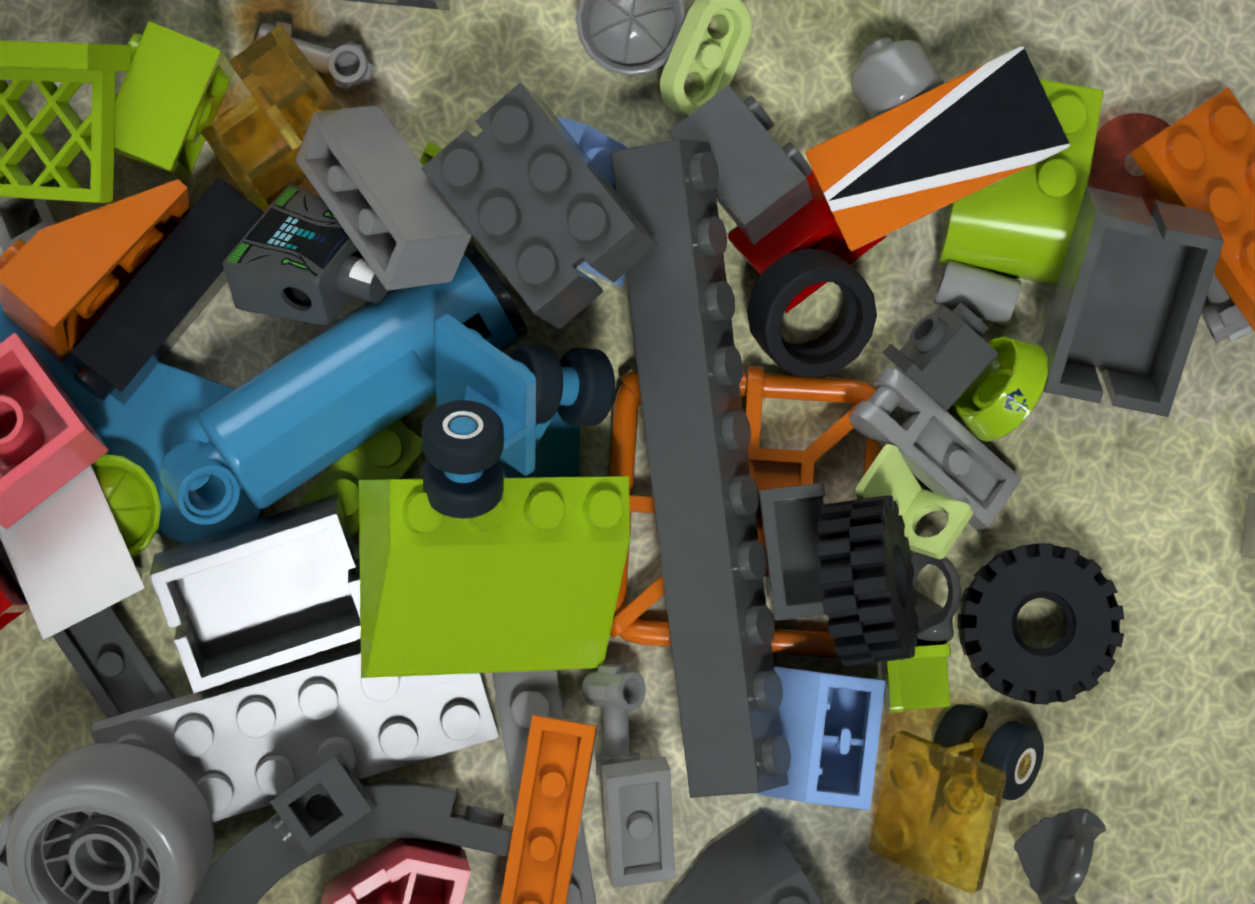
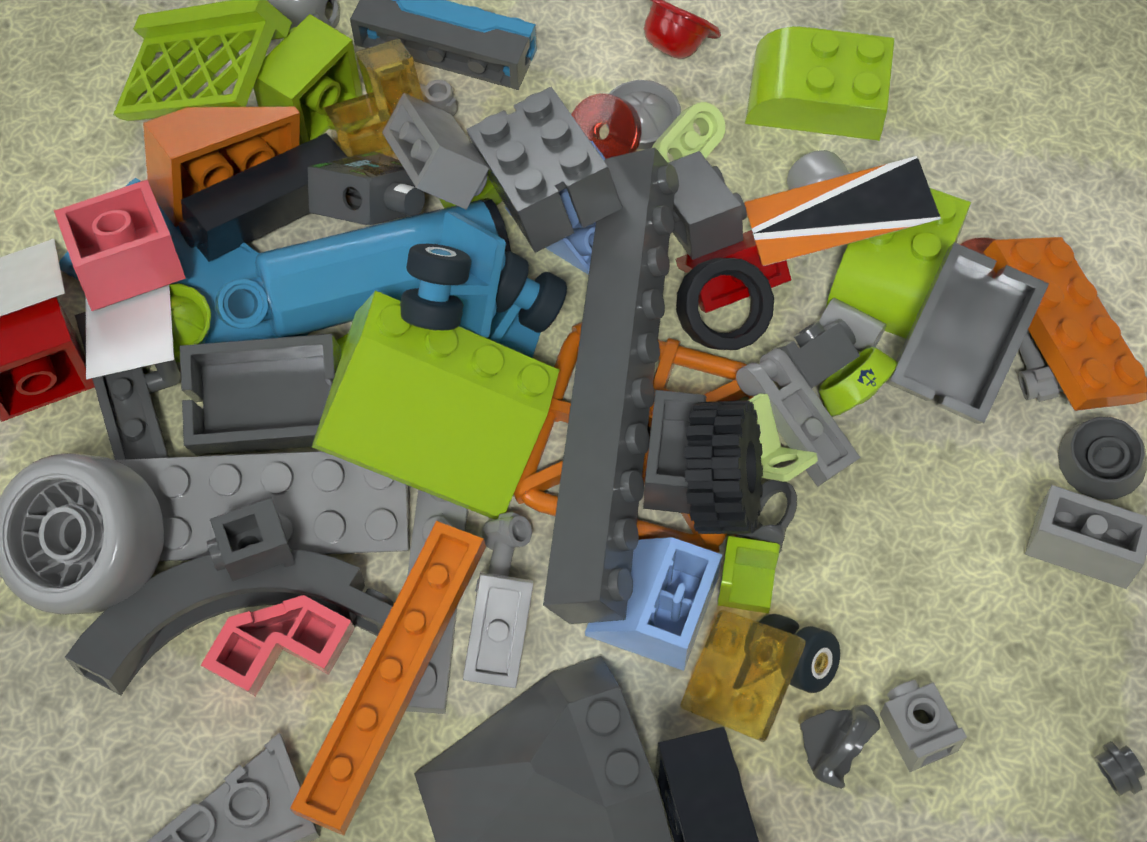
camera: 15 degrees right, 25 degrees down
(604, 49) = (621, 118): none -> clear red piece
(992, 635) = (848, 594): black tyre -> none
(1158, 838) = (919, 742): none -> light grey brick

